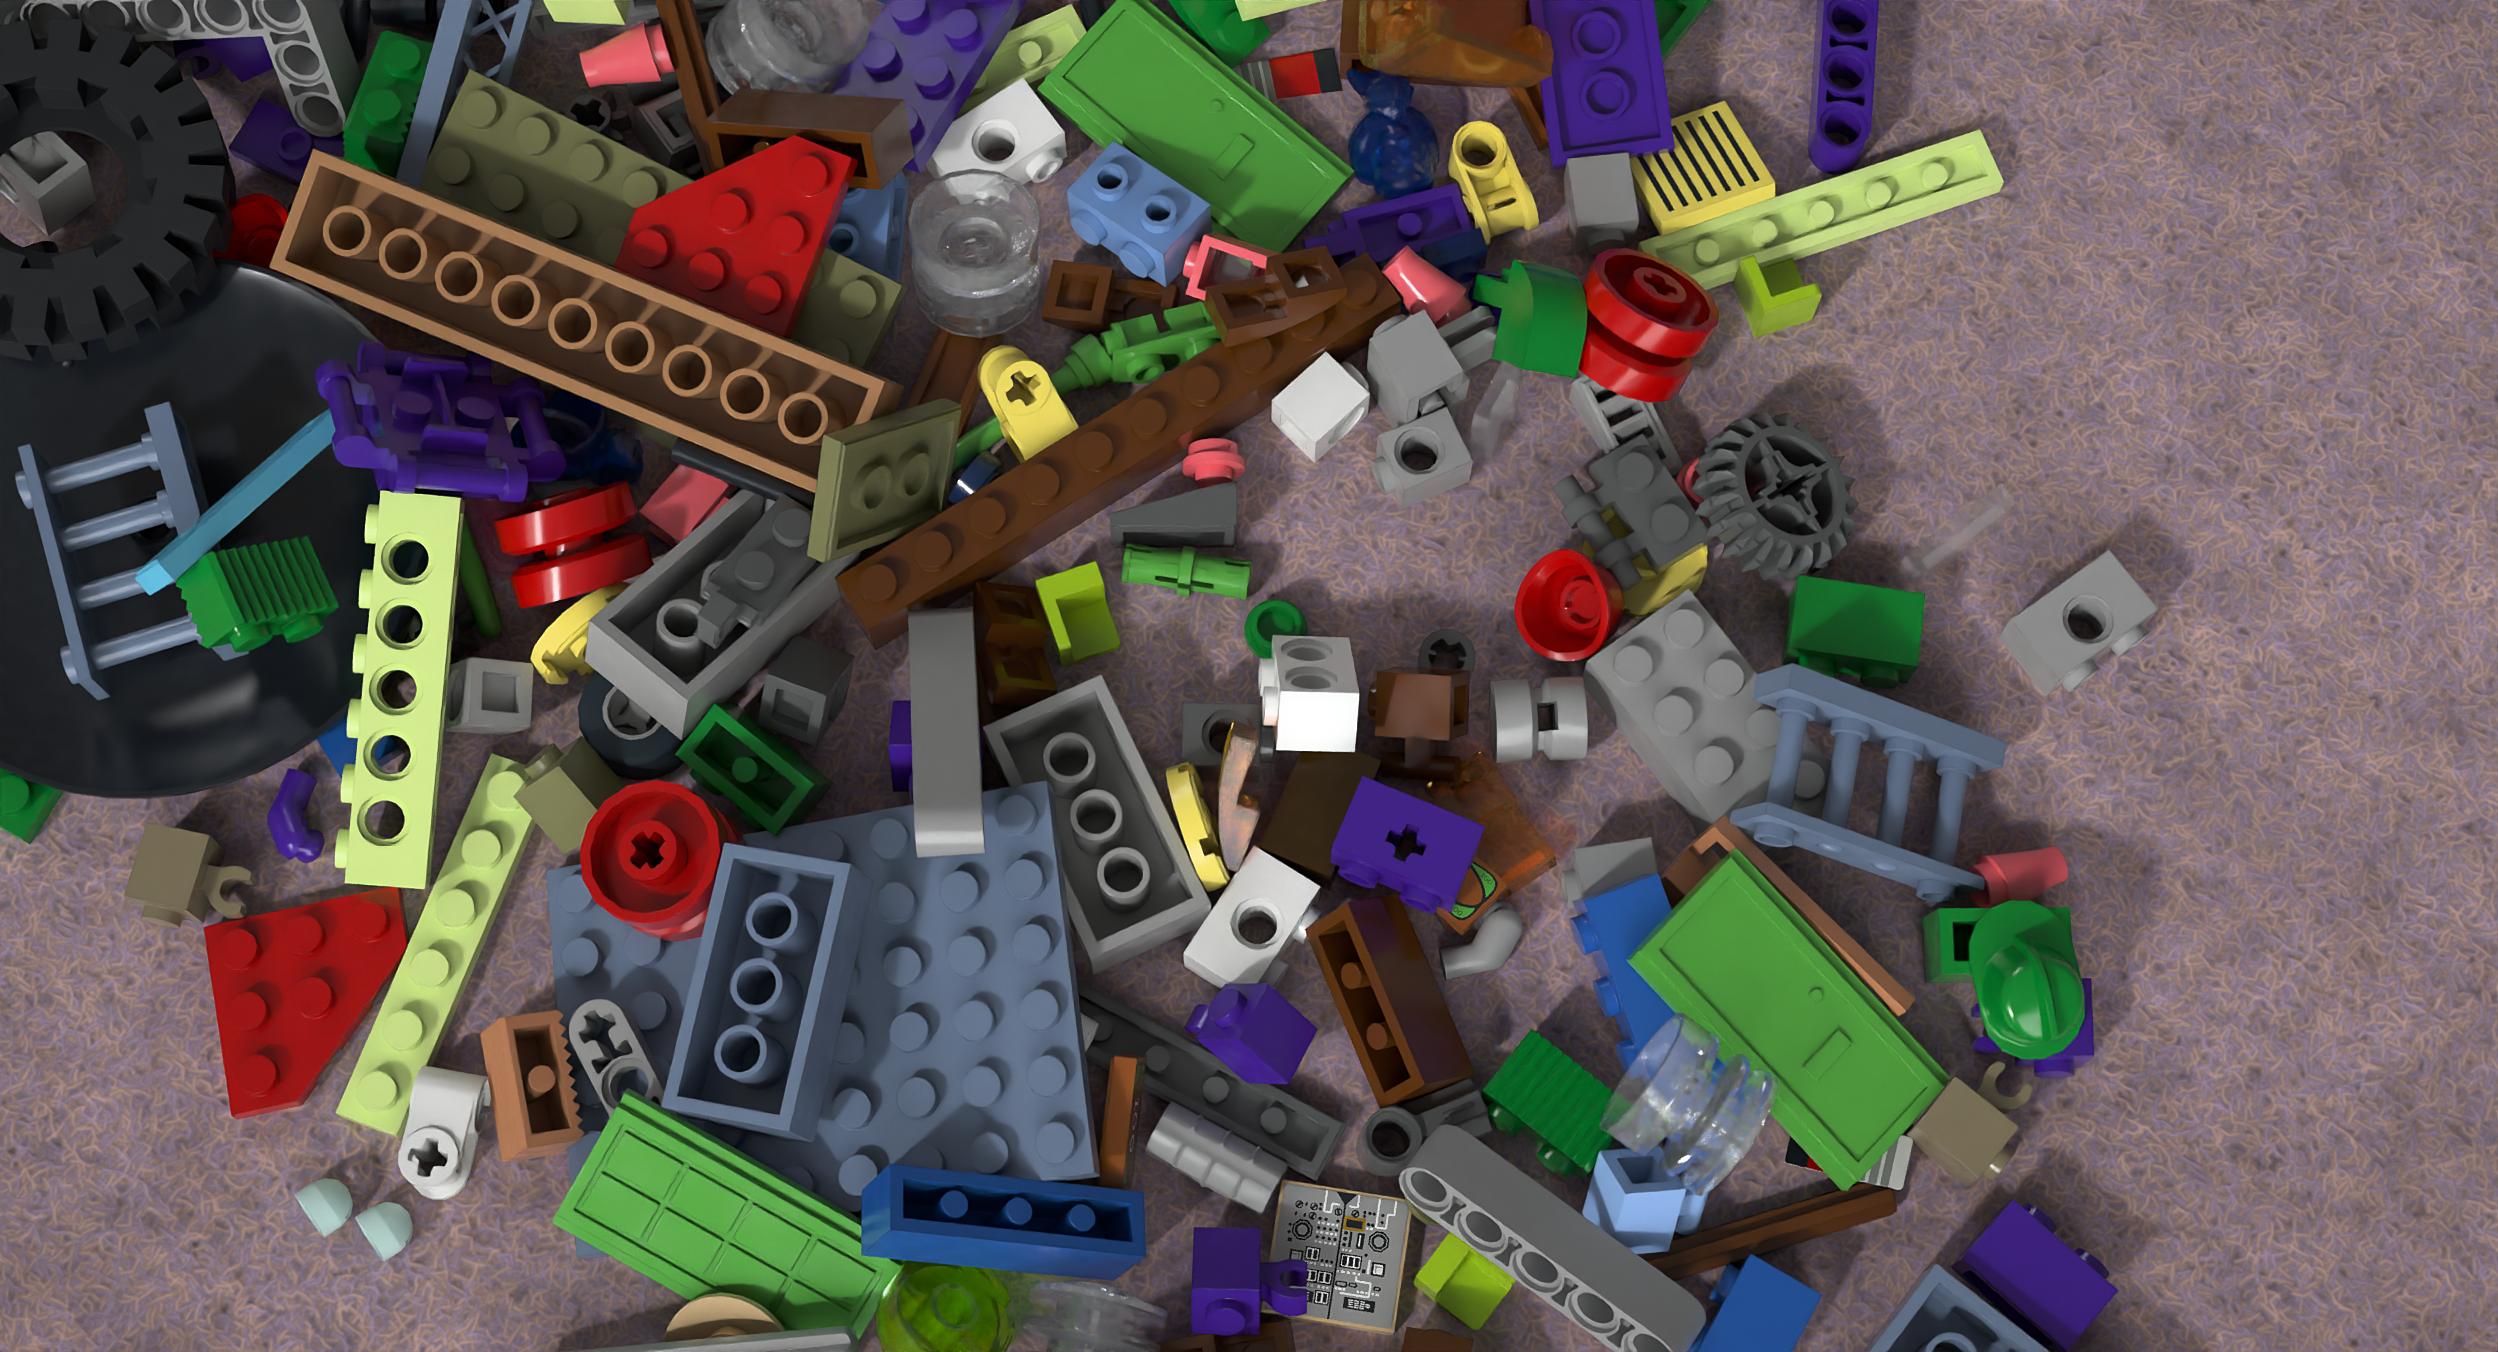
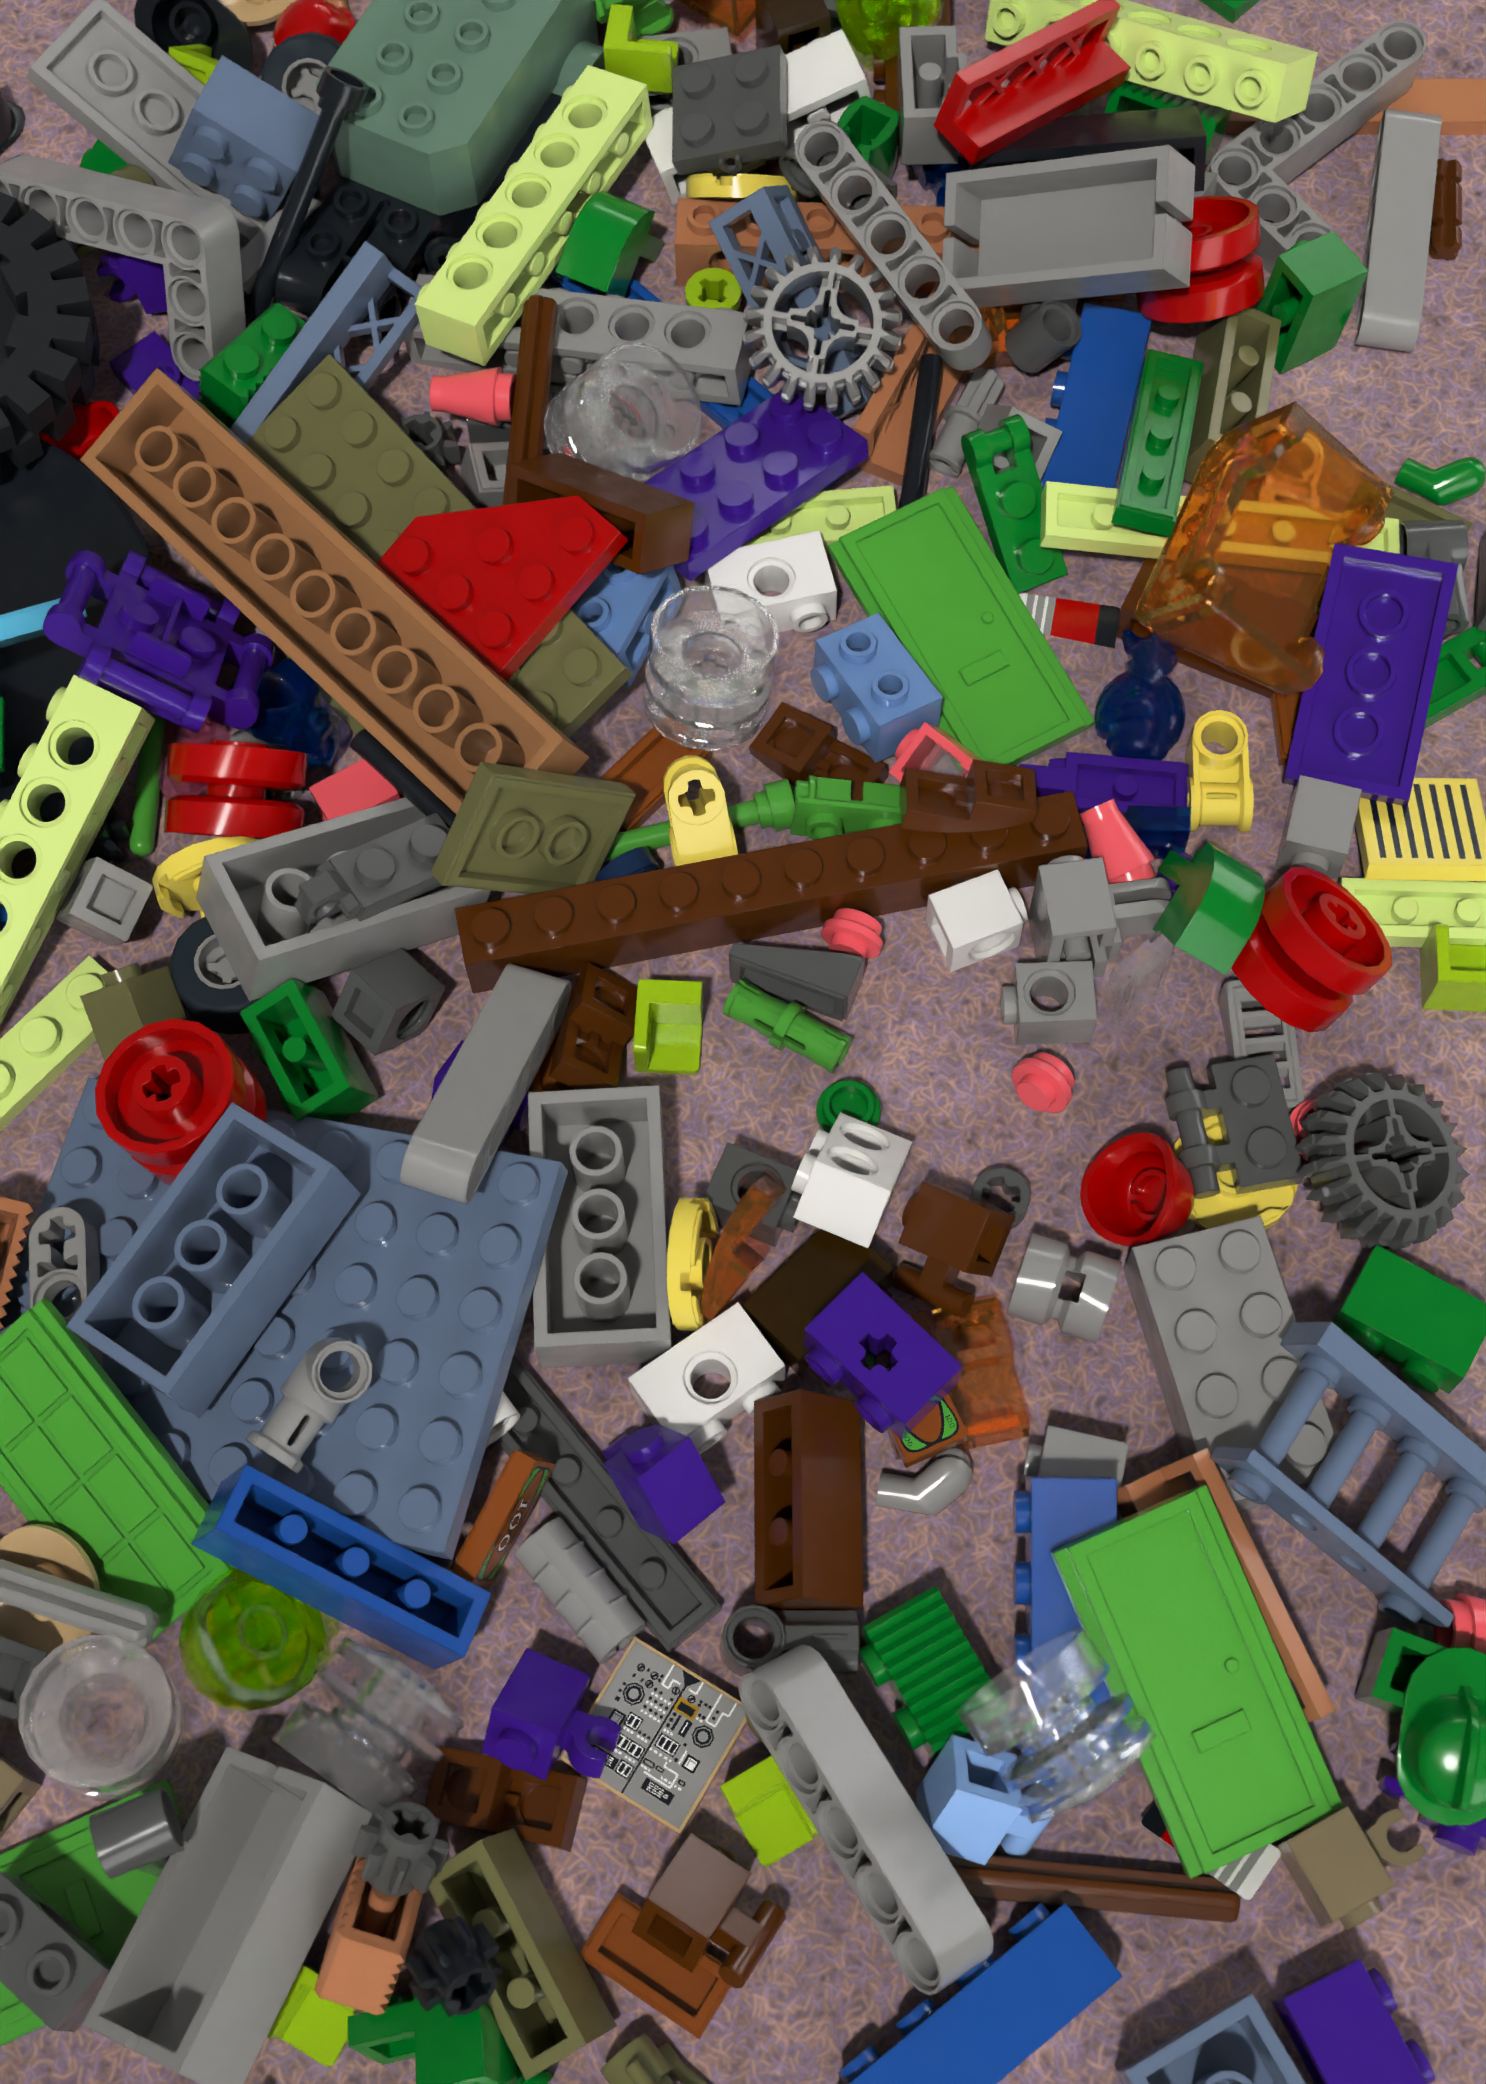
camera: 25 degrees right, 5 degrees down
(916, 1087) = (309, 1403): none -> light grey connector
(1444, 536) = (1043, 1083): none -> coral plate

